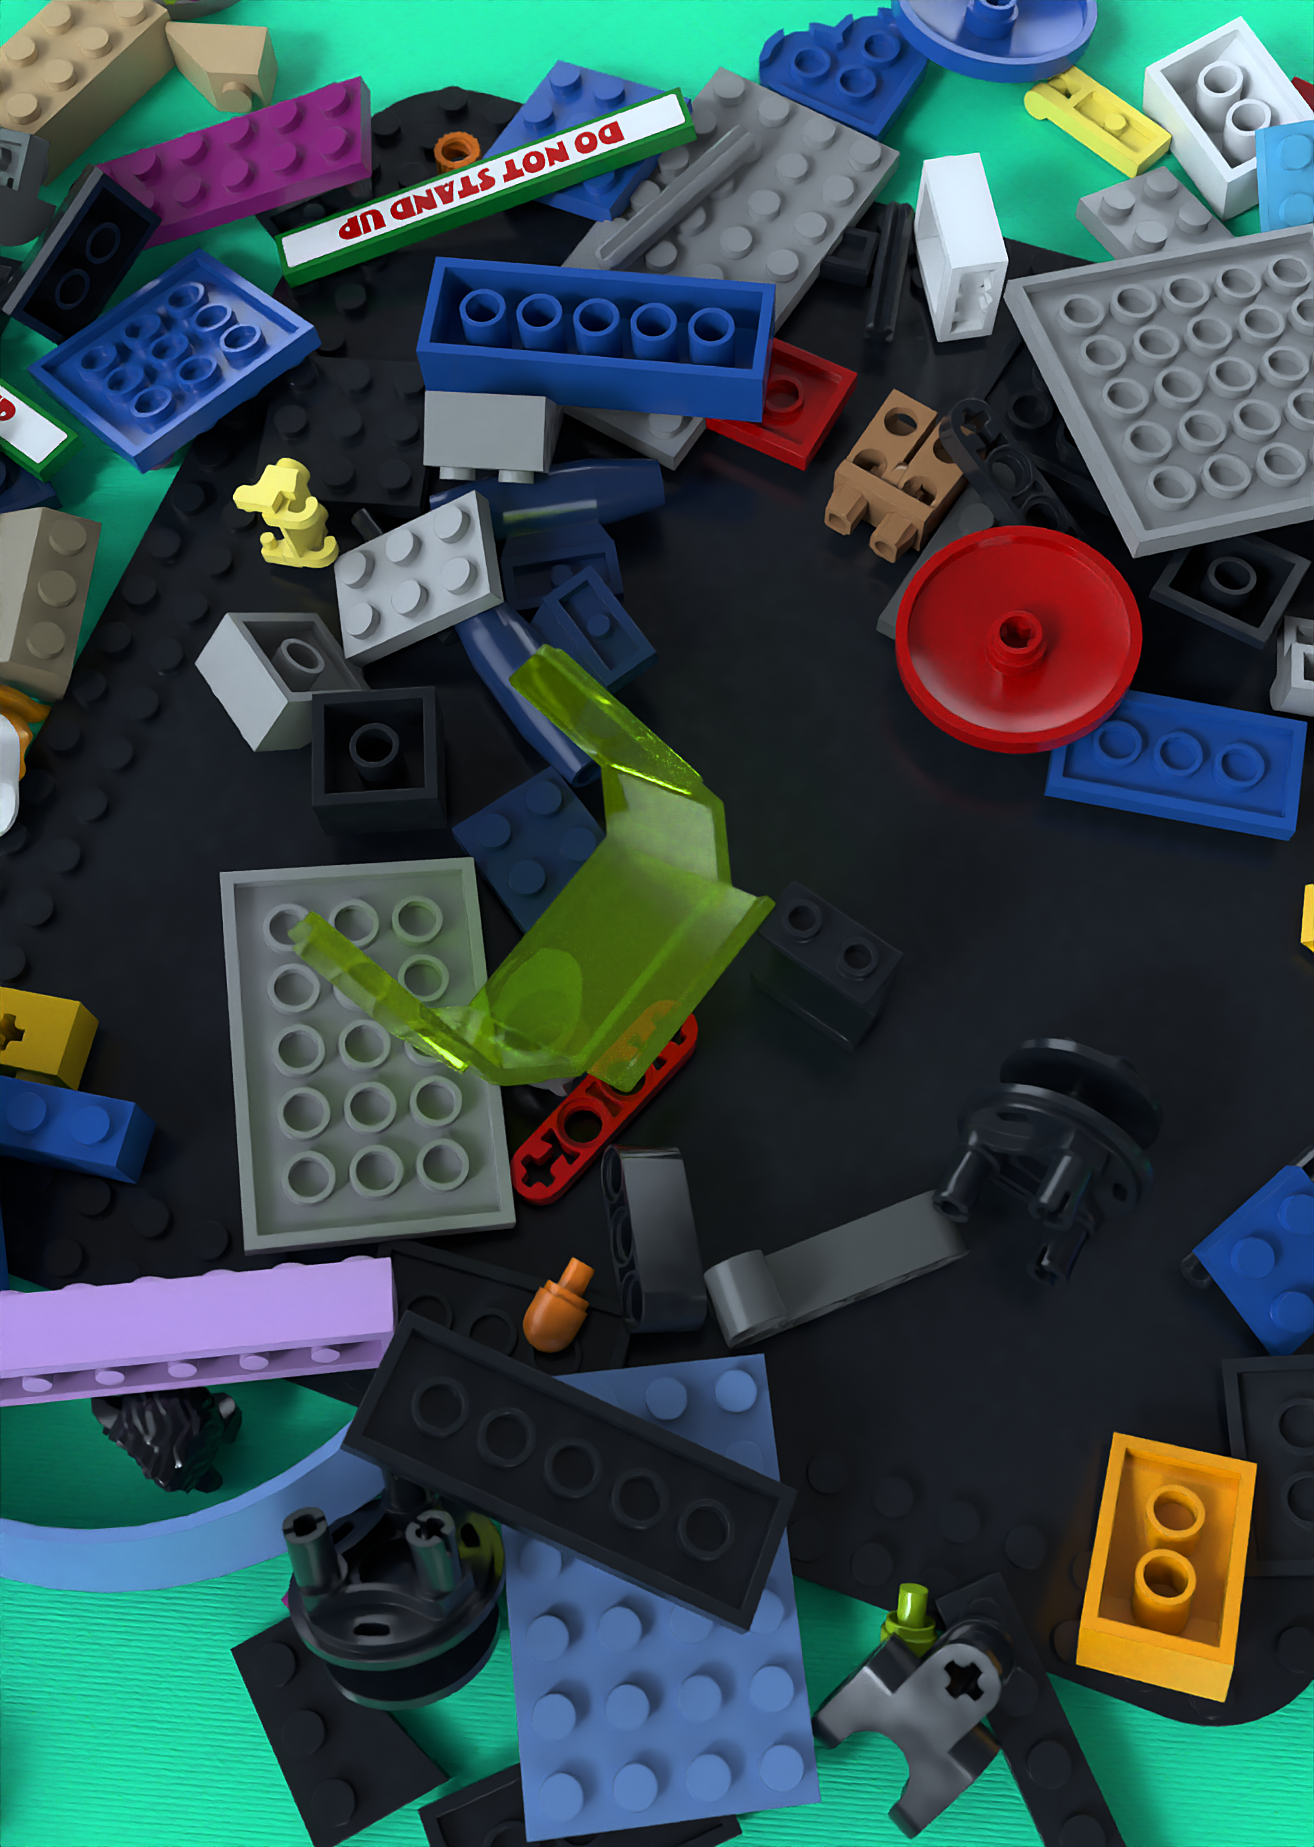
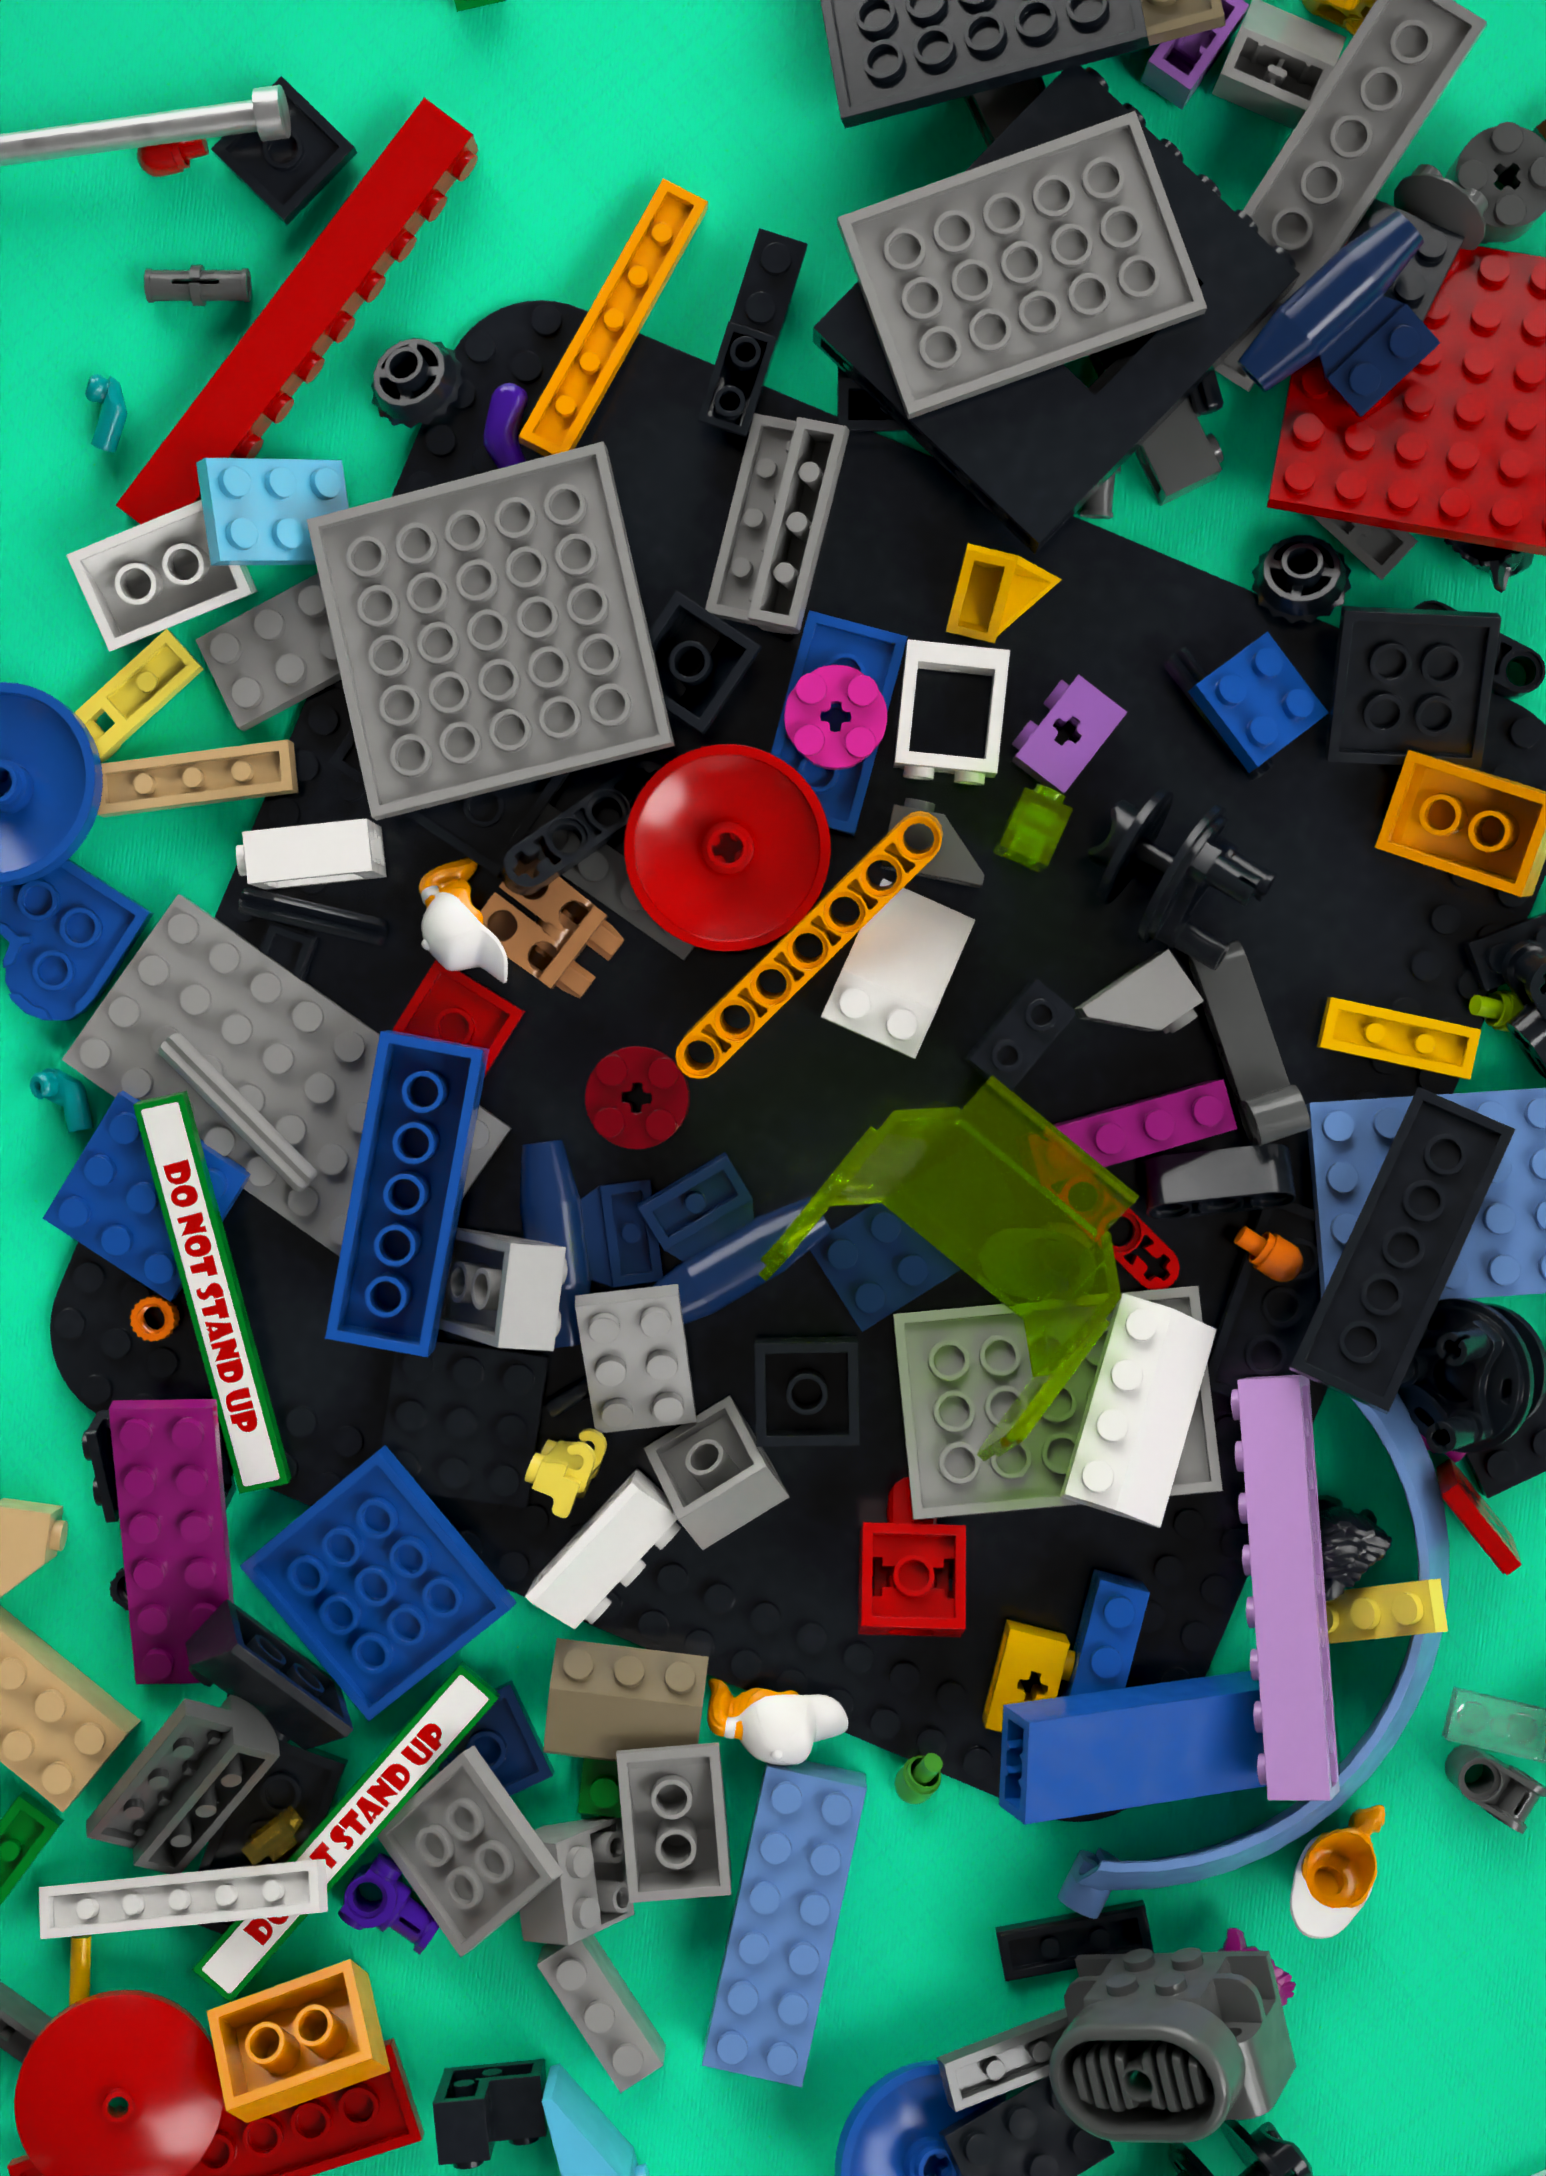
camera: 90 degrees left, 20 degrees up
(71, 1484) = (1387, 1611): none -> light yellow plate
(150, 883) = (911, 1573): none -> red brick
(192, 550) = (605, 1552): none -> white slope
(199, 1624) = (1477, 1517): none -> red tile
(348, 1131) = (1138, 1411): none -> white slope
(692, 77) = (65, 1092): none -> teal arm
(717, 572) = (616, 1118): none -> dark red brick
(719, 1132) = (1153, 1123): none -> magenta brick
(859, 1481) = (1398, 1038): none -> yellow plate
(888, 843) = (899, 971): none -> white slope
(888, 1121) = (1146, 998): none -> light grey slope
(894, 370) = (454, 927): none -> white hair
(925, 751) = (795, 967): none -> light orange beam
(1022, 169) = (198, 778): none -> tan plate
(1044, 867) = (953, 860): none -> dark grey slope
(1087, 975) = (1034, 827): none -> clear neon green brick
(1195, 718) = (856, 738): none -> dark pink plate
(1220, 1056) = (1094, 720): none -> medium lavender brick
(1276, 885) = (960, 660): none -> white window

